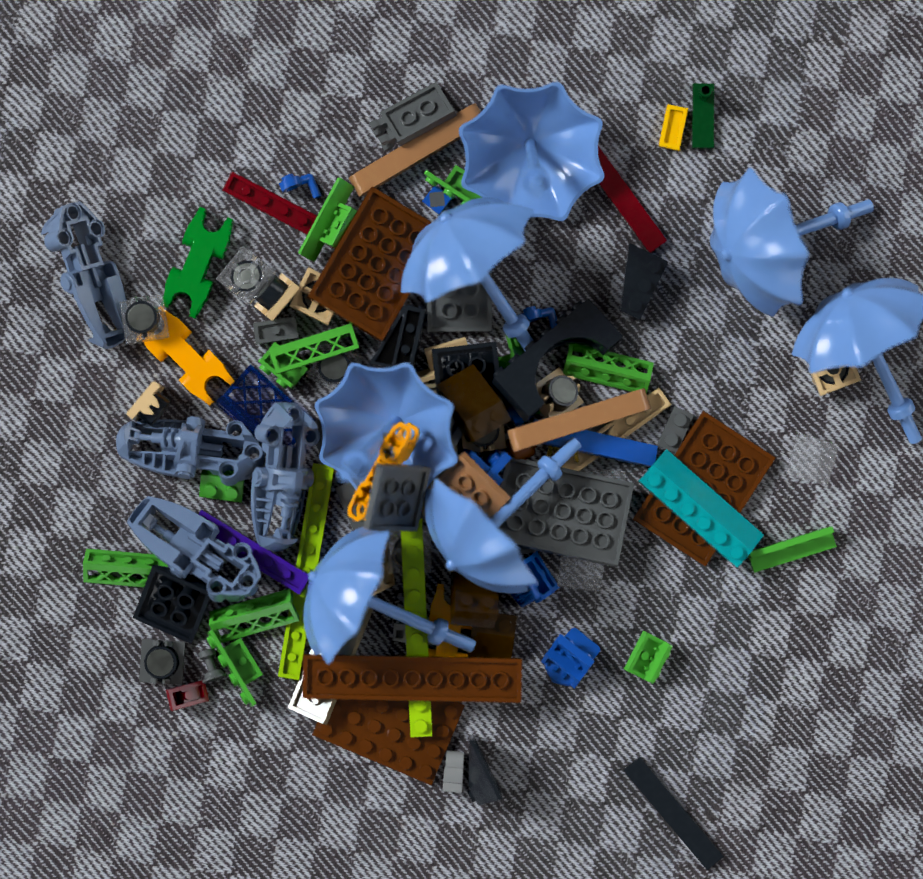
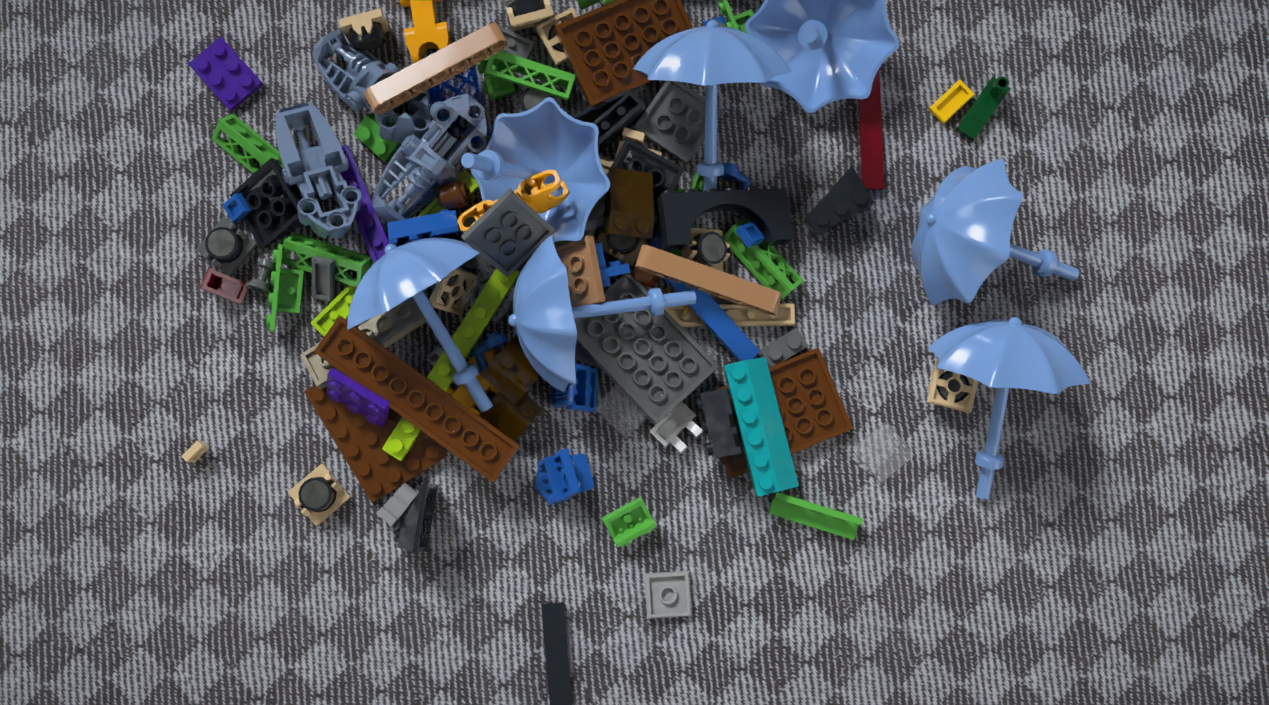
camera: 30 degrees right, 5 degrees down
(55, 519) = (225, 74): none -> dark purple plate
(147, 624) = (236, 207): none -> blue tile
(236, 400) = (435, 68): none -> beam
(260, 843) = (195, 451): none -> tan tile
(263, 633) = (323, 278): none -> dark grey tile
(321, 537) = (427, 226): none -> blue wedge
(322, 492) = (454, 195): none -> reddish brown head
(363, 710) = (357, 398): none -> dark purple plate
(383, 809) = (318, 494): none -> piece
(432, 339) = (634, 135): none -> tan tile
(440, 588) = (494, 341): none -> blue plate
(585, 357) = (750, 234): none -> blue tile
(629, 555) = (671, 425): none -> white plate
(666, 531) = (718, 424): none -> black wedge
(718, 692) = (667, 594): none -> light grey tile

